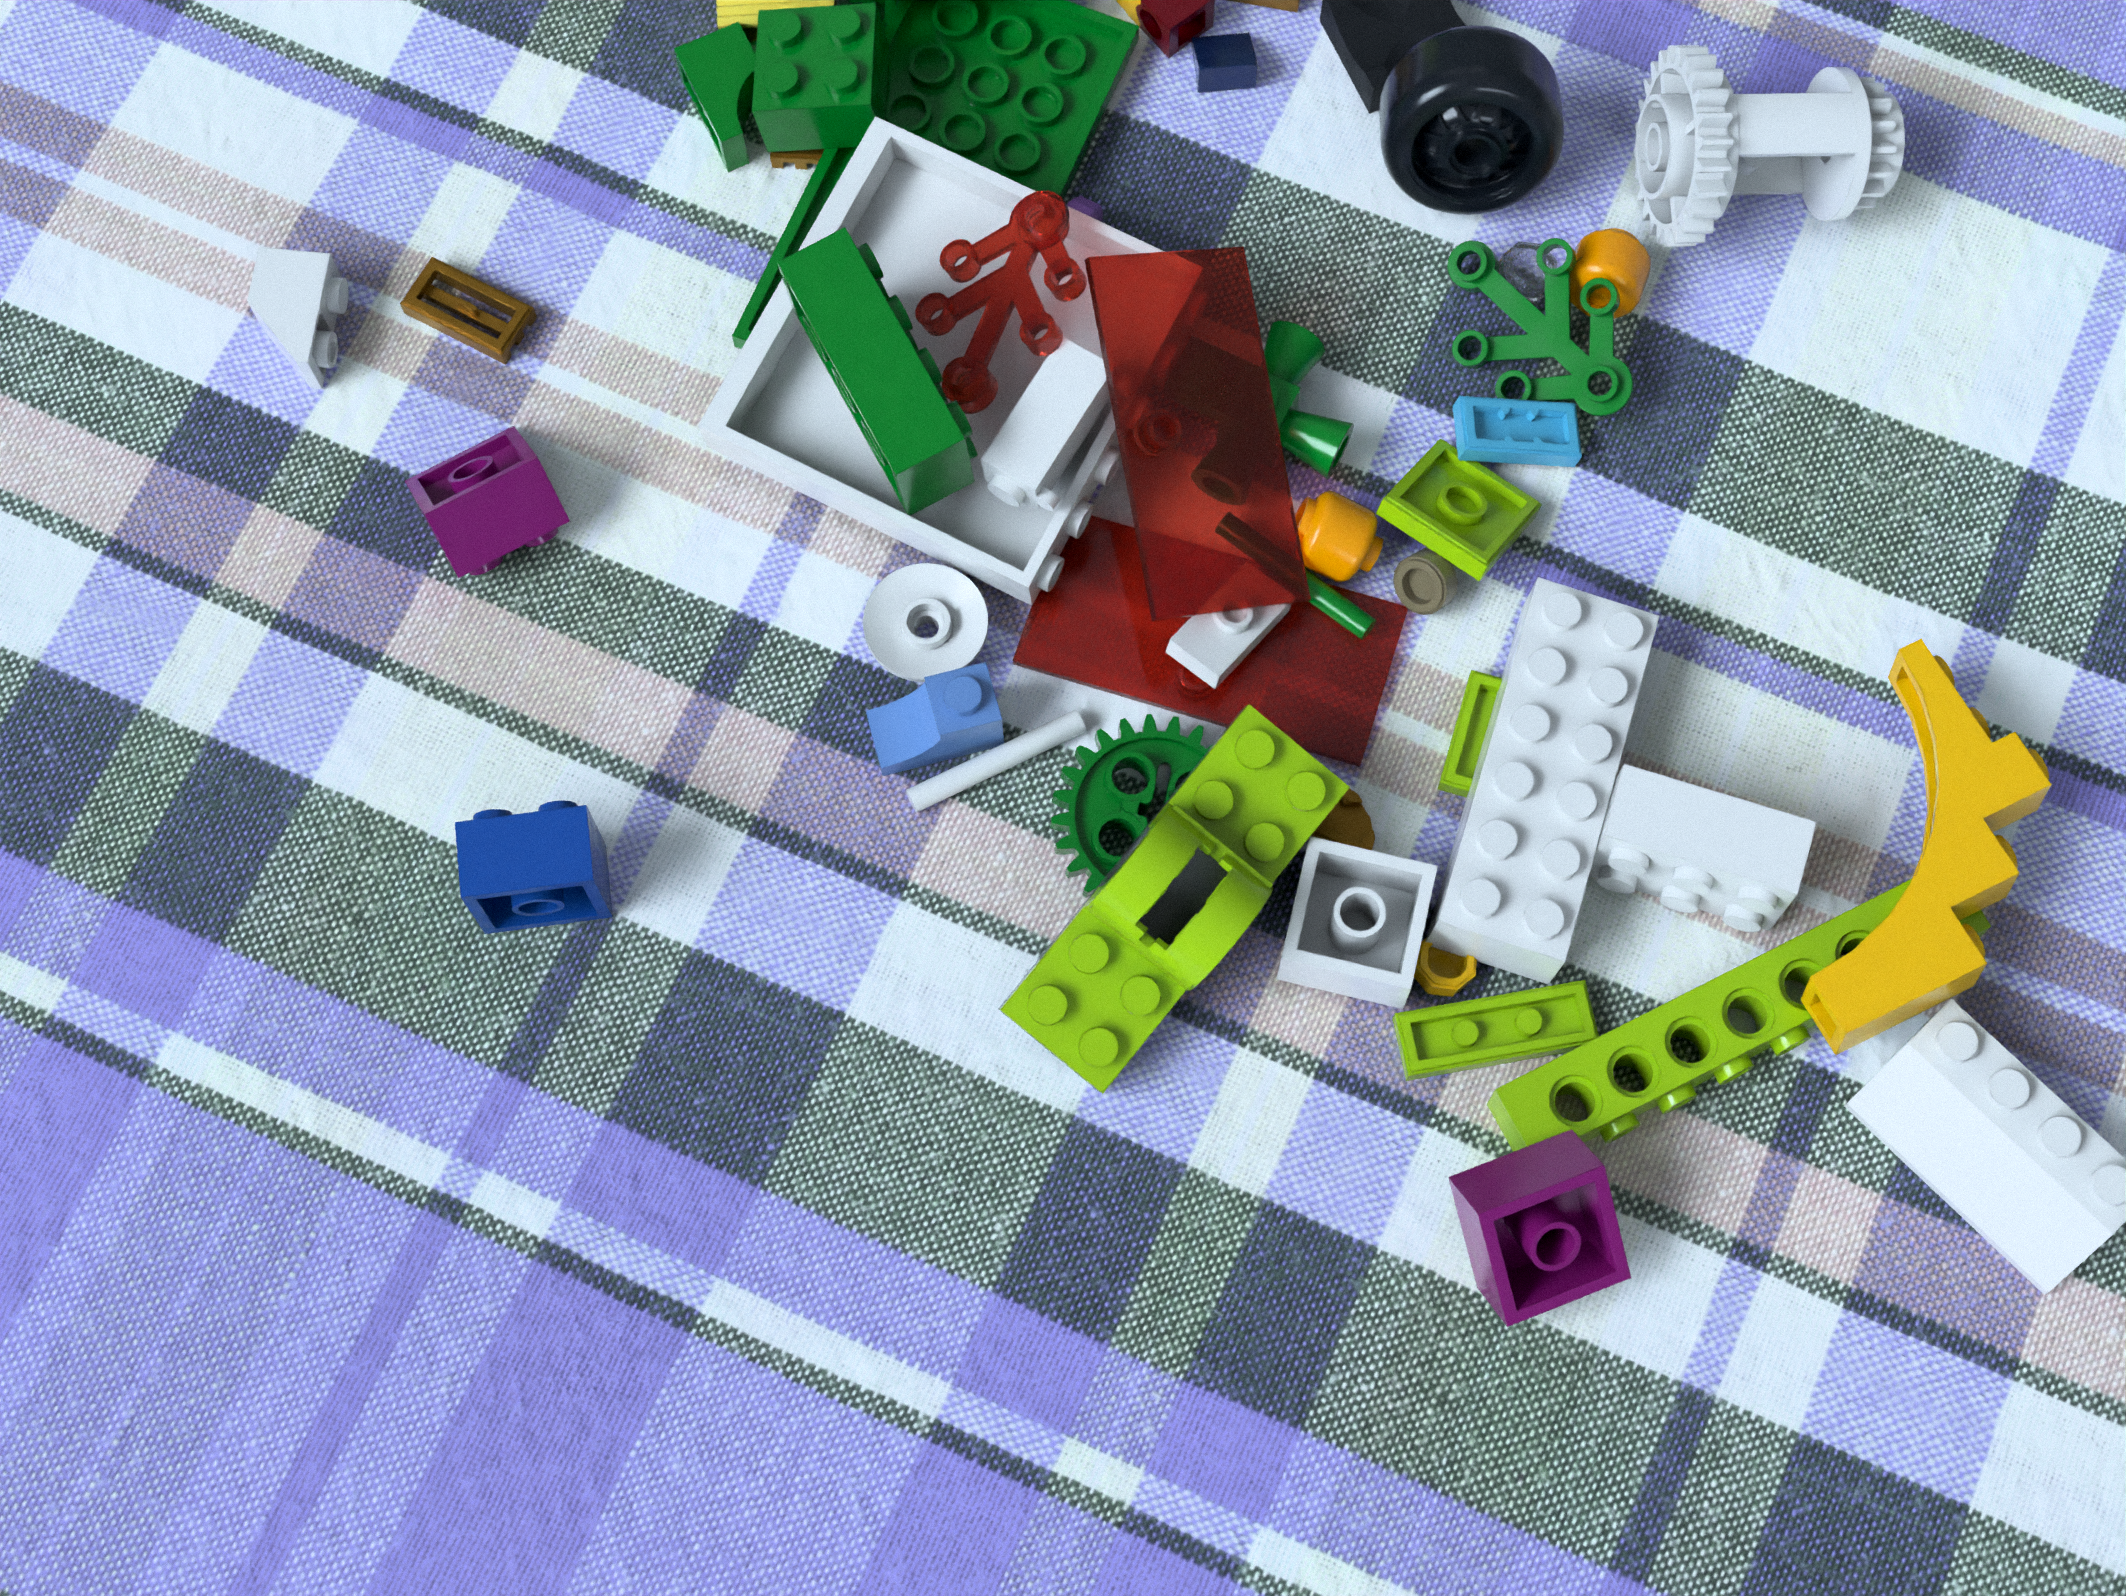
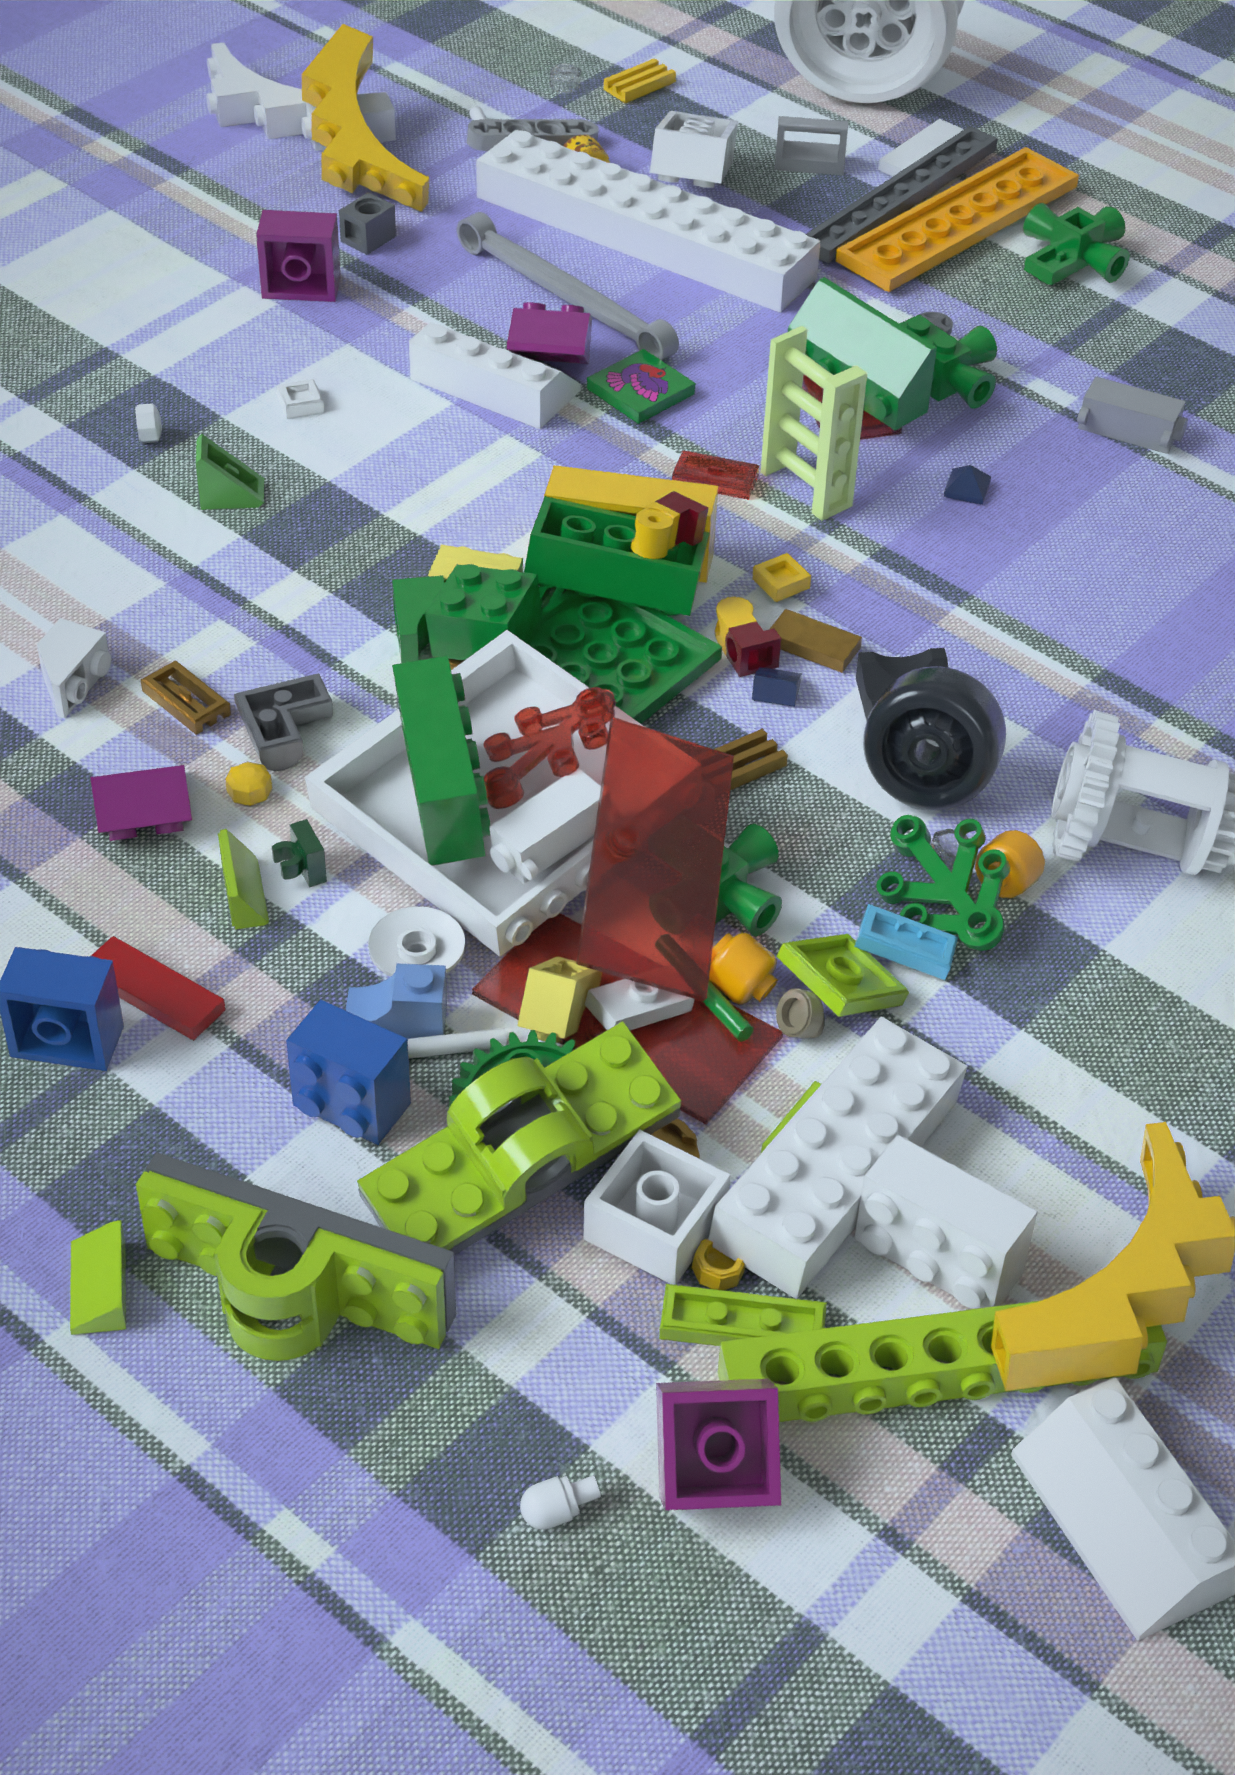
camera: 15 degrees right, 25 degrees down
(597, 312) = (276, 710): none -> flat silver brick
(610, 428) = (248, 783): none -> yellow tile
(620, 782) = (161, 990): none -> red tile
(668, 590) = (242, 883): none -> lime slope
(730, 522) = (301, 855): none -> dark green tile
(733, 1219) = (98, 1280): none -> lime slope
(925, 853) = (349, 1072): none -> blue brick
(935, 1120) = (292, 1260): none -> lime piece
(1131, 656) = (556, 997): none -> light yellow arch
(1246, 173) = (749, 749): none -> pearl gold tile
(1371, 1337) = (556, 1501): none -> white cylinder

